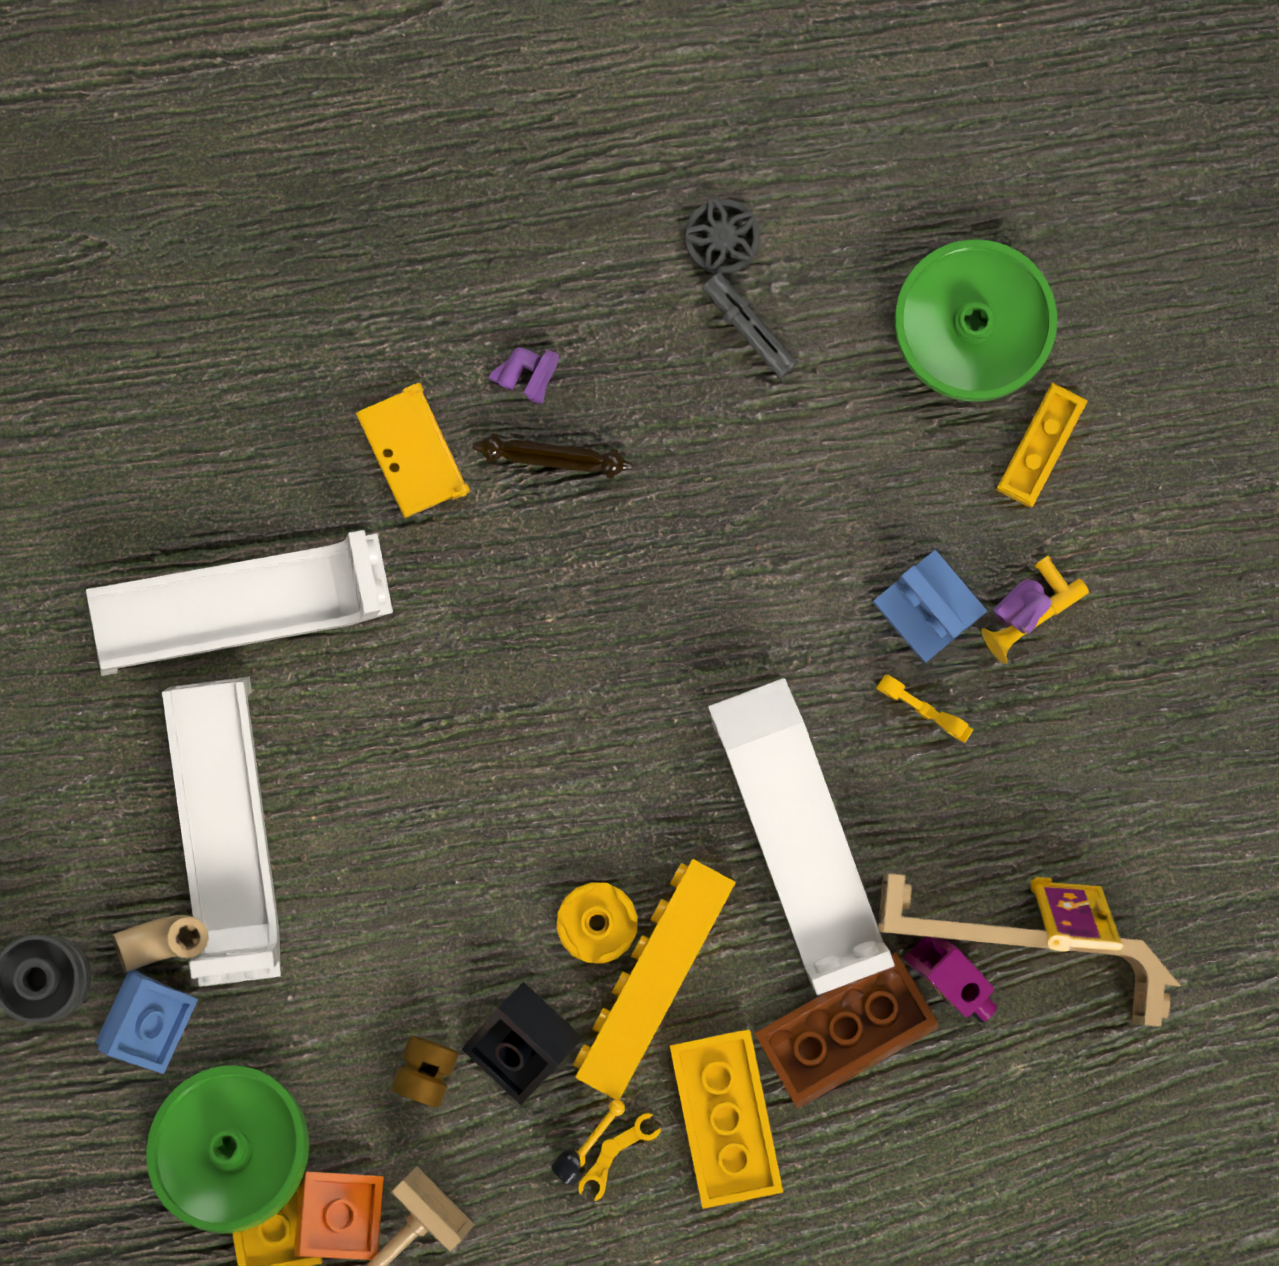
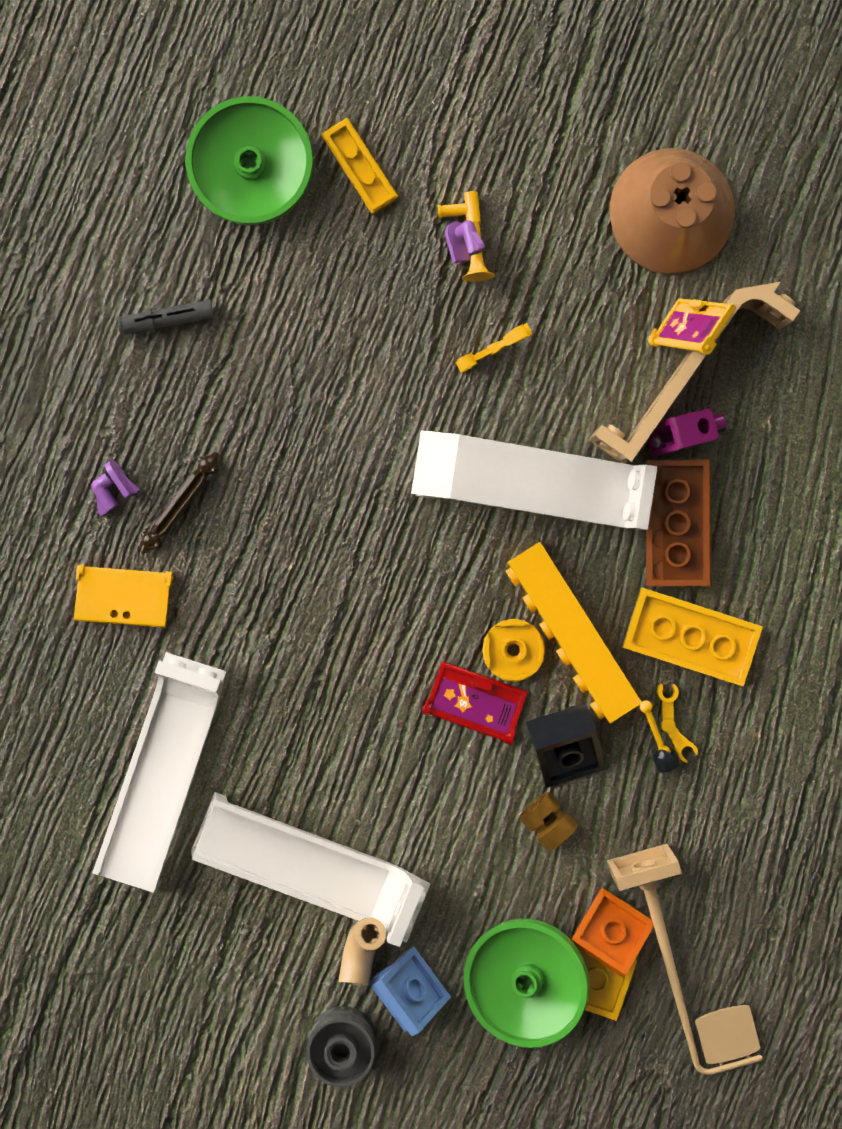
camera: 65 degrees left, 5 degrees up
(507, 915) = (485, 707): none -> door
(722, 236) = (93, 301): dark grey wheel -> none
(929, 606) = (426, 305): medium blue bracket -> none
(1161, 829) = (671, 211): none -> medium nougat cone

